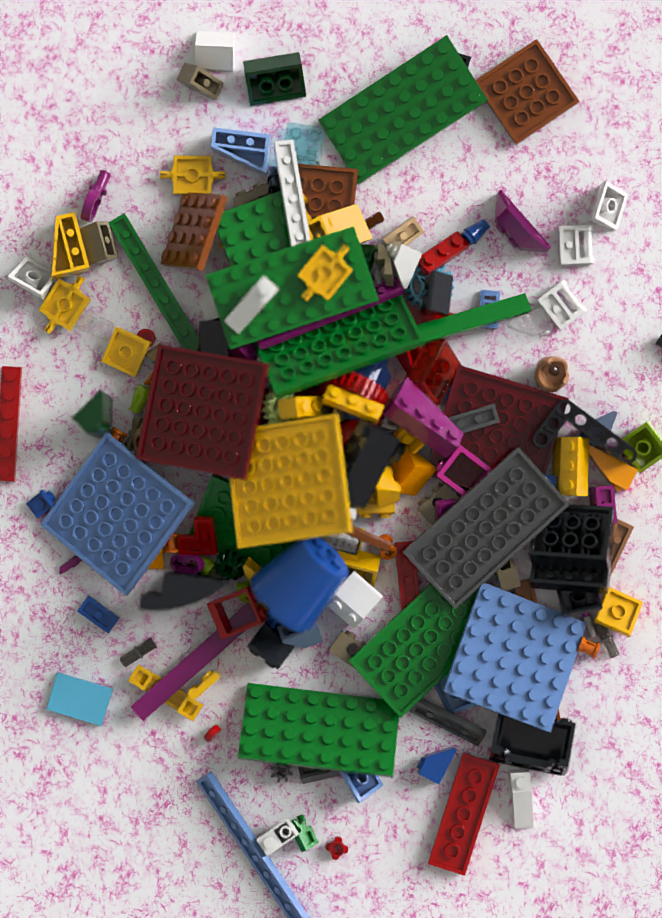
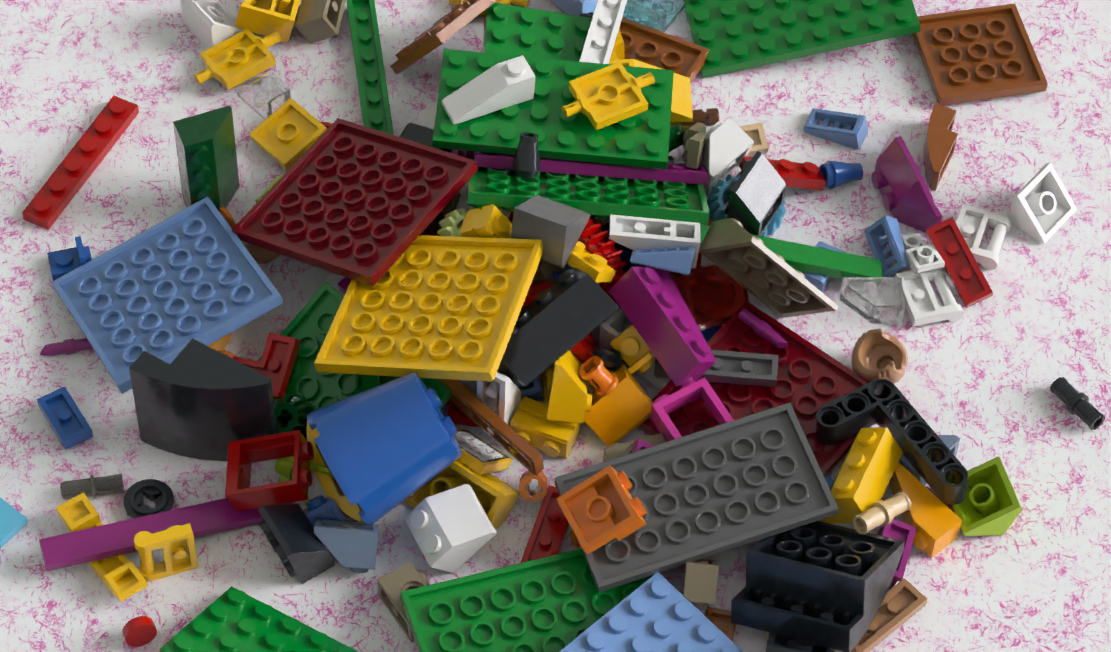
camera: 15 degrees right, 35 degrees down
(165, 648) = (152, 490): none -> black gear
(293, 338) = (527, 159): none -> black cone
(335, 398) = (551, 222): none -> dark grey slope
(396, 365) = (654, 233): none -> white slope
(402, 471) = (598, 376): none -> orange bush
(414, 381) = (670, 259): none -> medium blue slope
(440, 567) = (602, 509): none -> orange plate
(466, 199) = (851, 136): none -> medium blue slope
(467, 350) = (762, 271): none -> dark tan slope
(475, 383) = (762, 329): none -> magenta piece
(523, 269) = (890, 227): none -> medium blue slope
(527, 182) = (939, 144): none -> dark orange slope
(545, 278) = (920, 255): none -> white slope
(572, 276) = (959, 262): none -> red plate
(593, 490) = (881, 513): none -> tan pin

